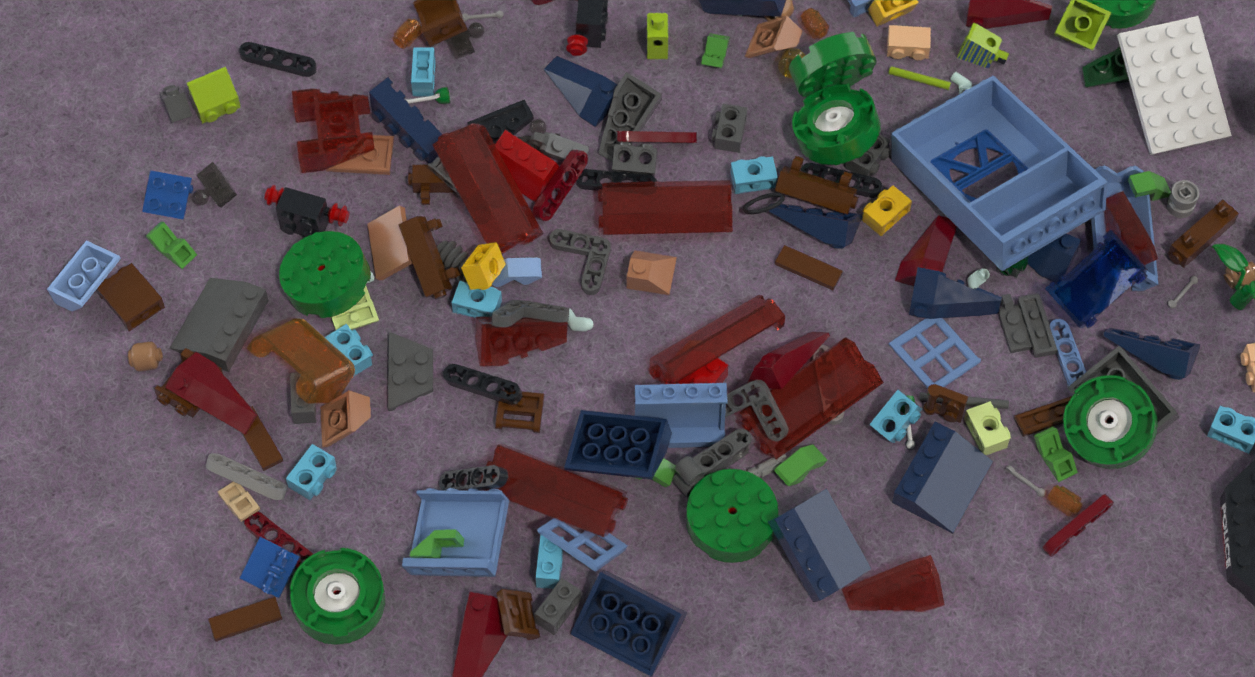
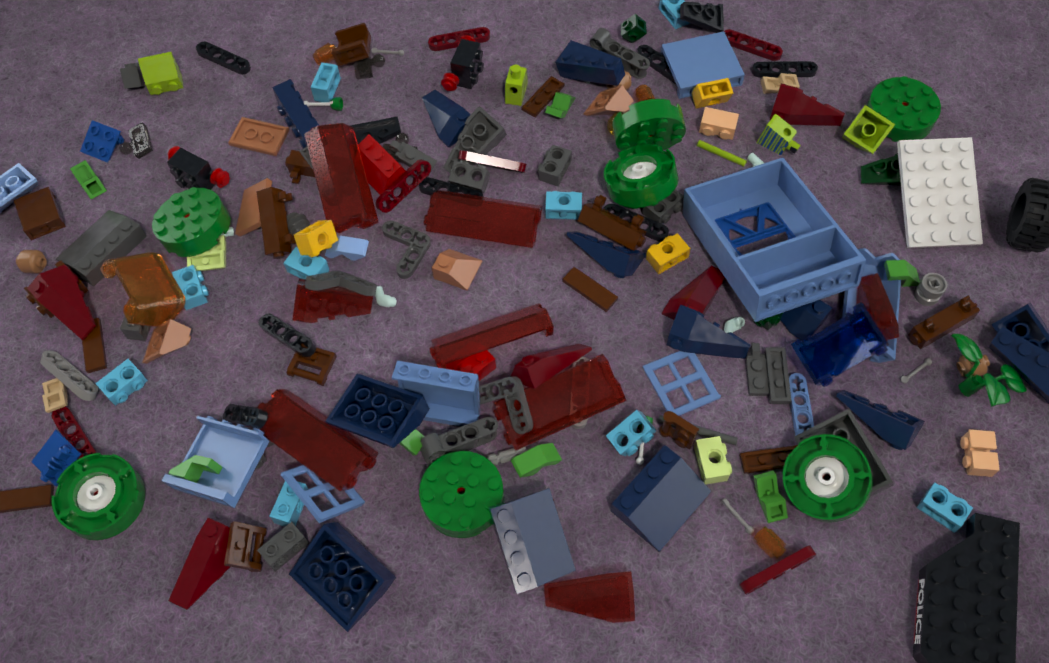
camera: 15 degrees right, 0 degrees up
(336, 128) = (242, 113): clear red wedge -> none
(409, 371) = (233, 313): dark grey wing -> none
(691, 43) = (542, 96): none -> reddish brown tile
(758, 211) = (550, 233): black piece -> none

